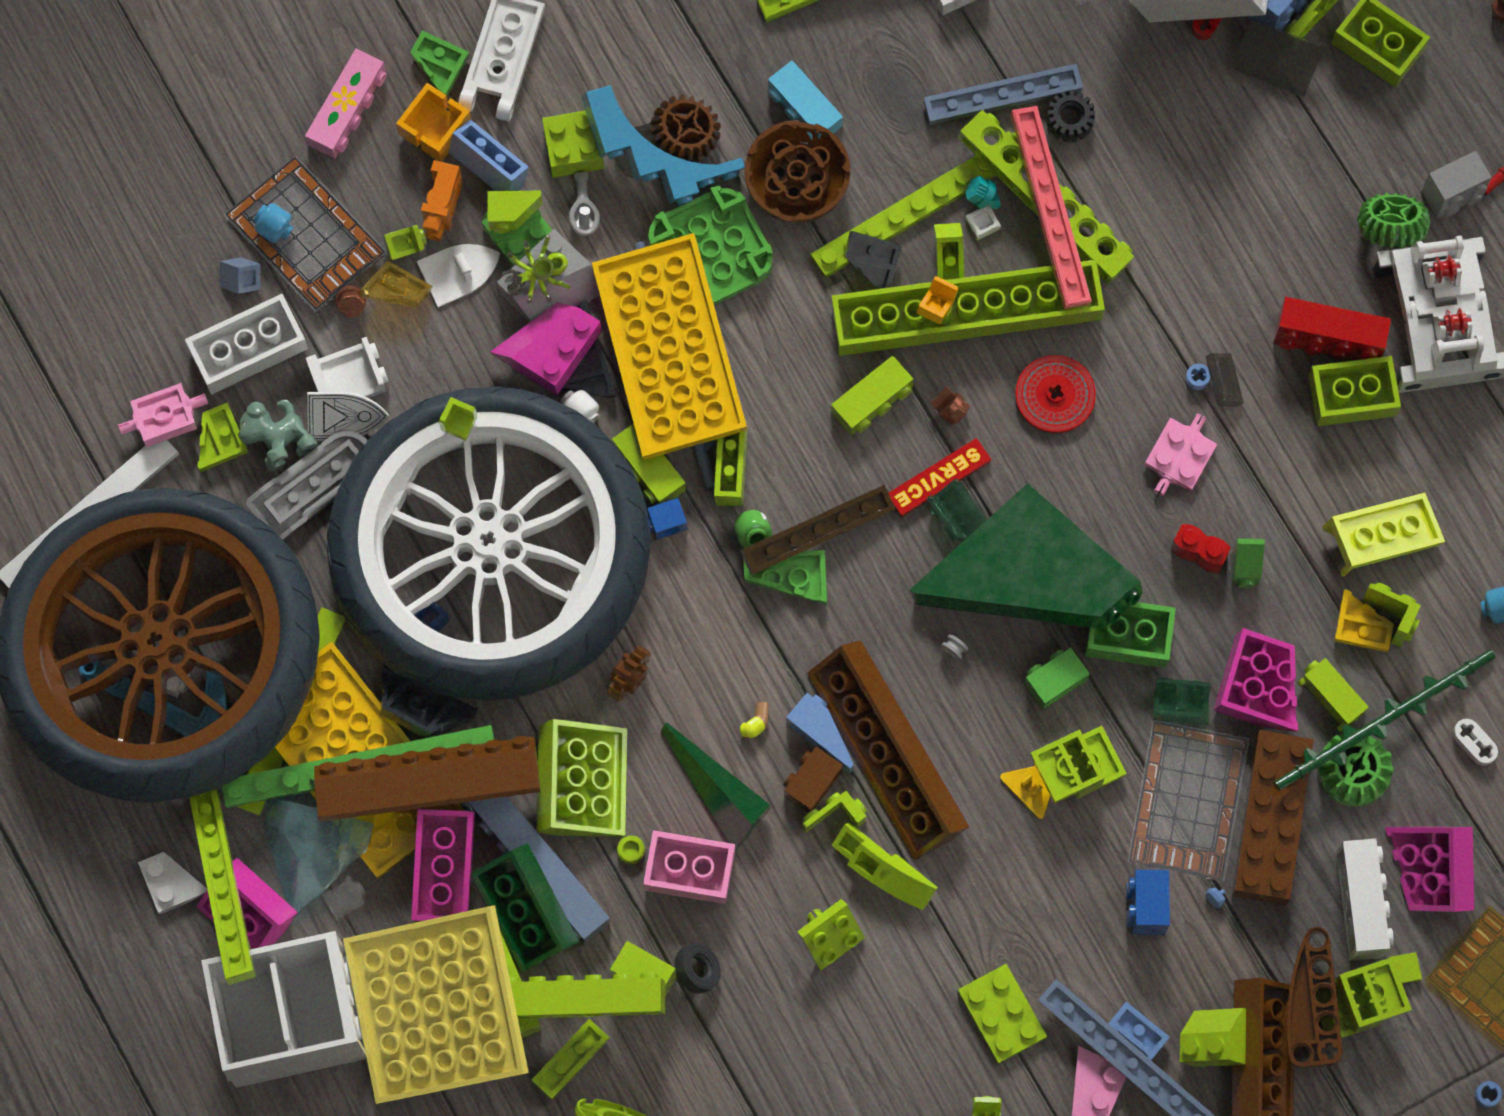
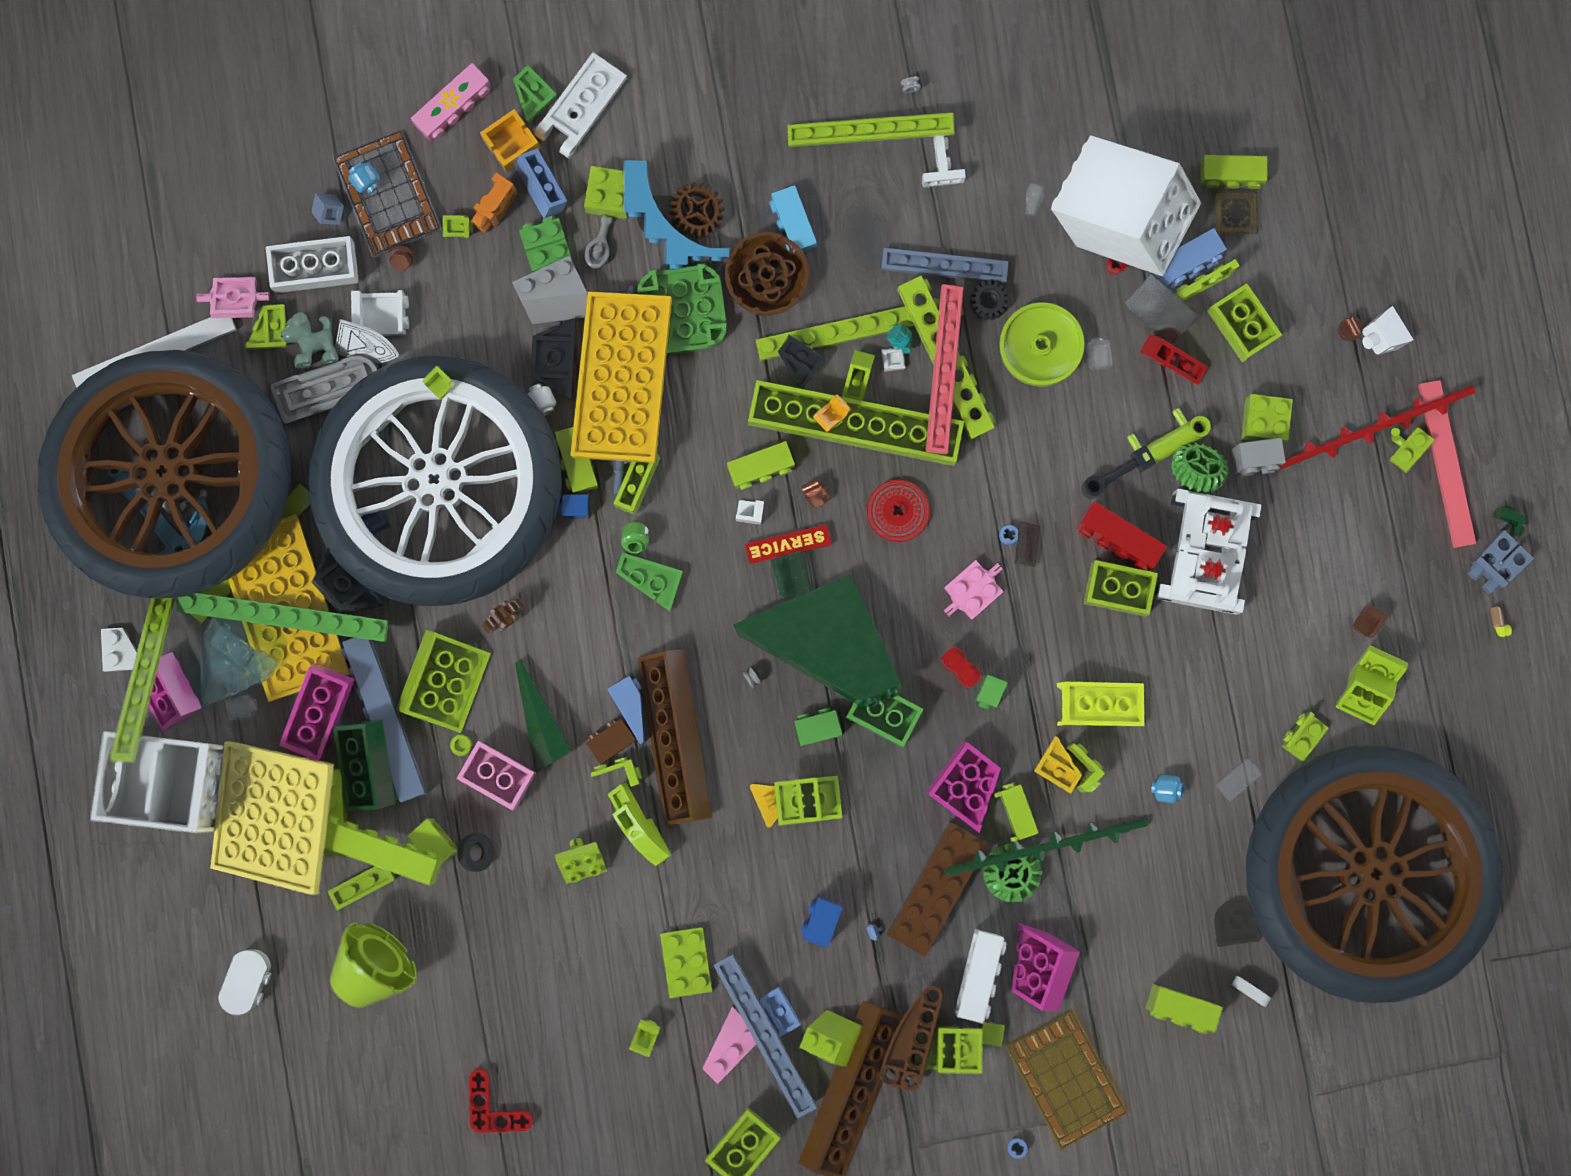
camera: 15 degrees right, 10 degrees up
(396, 286) = (438, 258): clear yellow wing -> none
(426, 778) = (324, 646): reddish brown slope -> none
(458, 271) = (490, 261): white shield -> none
(511, 209) = (541, 230): lime slope -> none
(540, 270) = (545, 285): animal -> none
(551, 345) = (535, 344): dark pink wedge -> none
(758, 723) = (586, 684): arm -> none
(817, 529) = (682, 554): dark brown plate -> none
(880, 455) = (750, 512): none -> white panel
(1152, 144) = (1041, 344): none -> lime dish
(1181, 701) = (903, 778): clear green bracket -> none
(1188, 800) = (881, 852): clear piece -> none
(1224, 133) = (1099, 354): none -> clear brick
(1313, 109) = (1173, 359): none -> red slope
(1326, 229) = (1153, 453): none -> lime piece
(1448, 137) = (1266, 418): none -> lime brick
(1470, 746) = (1113, 881): white beam -> none

